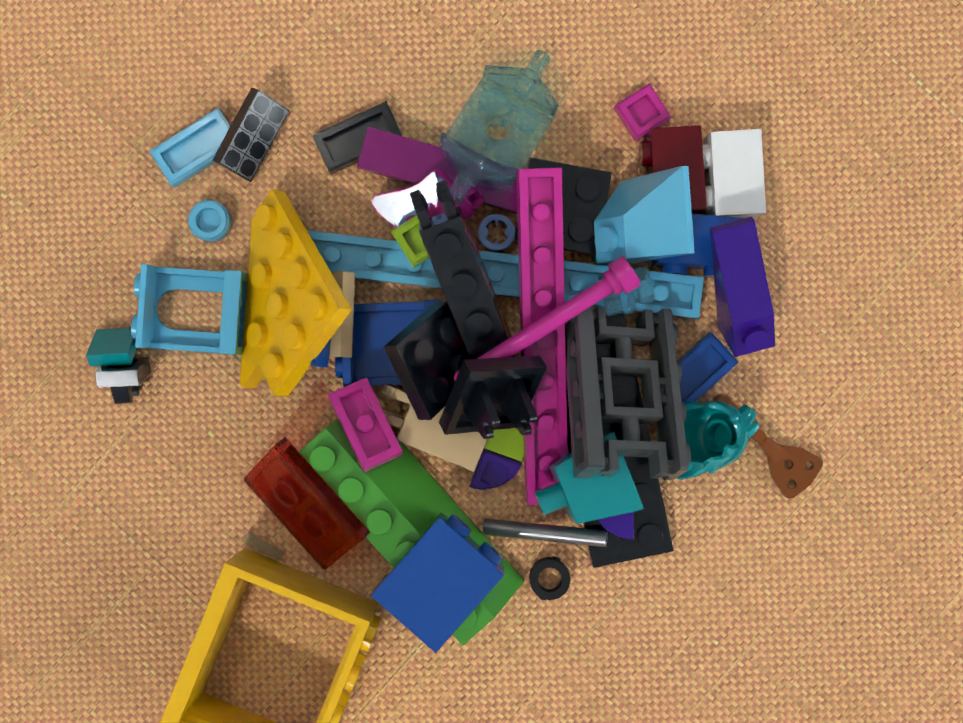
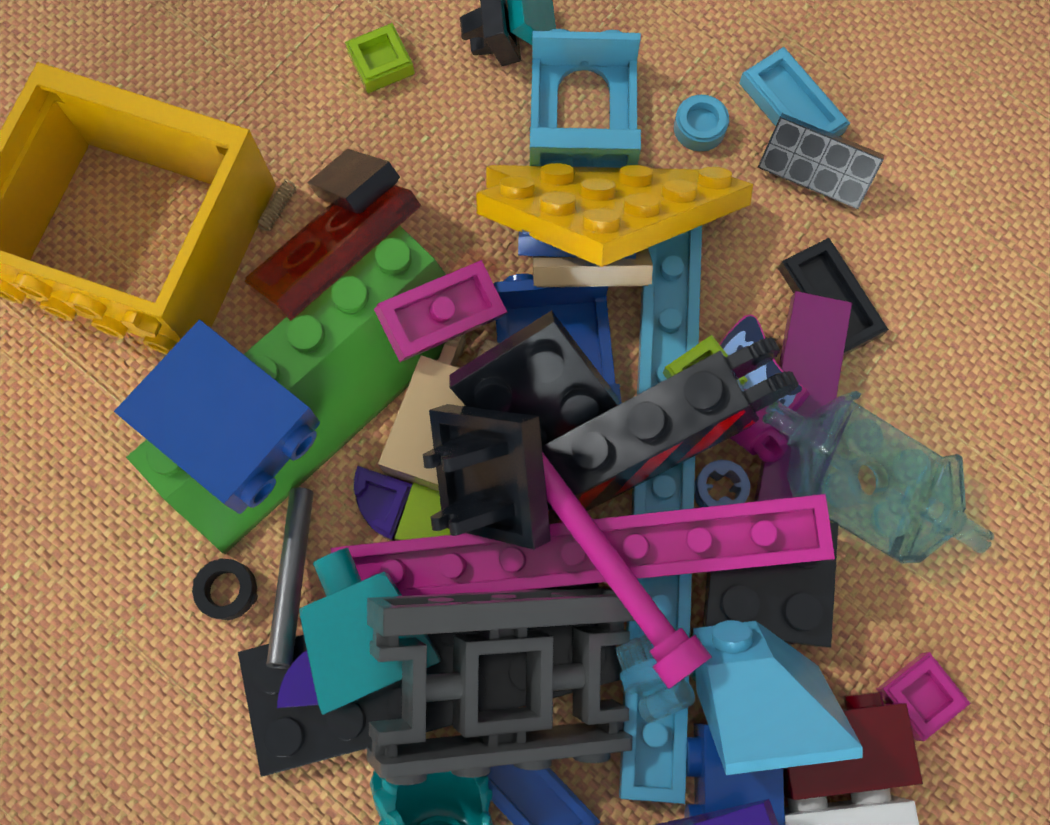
camera: 85 degrees right, 15 degrees down
(140, 467) = (380, 58): none -> lime tile
(254, 487) = (354, 180): none -> black tile

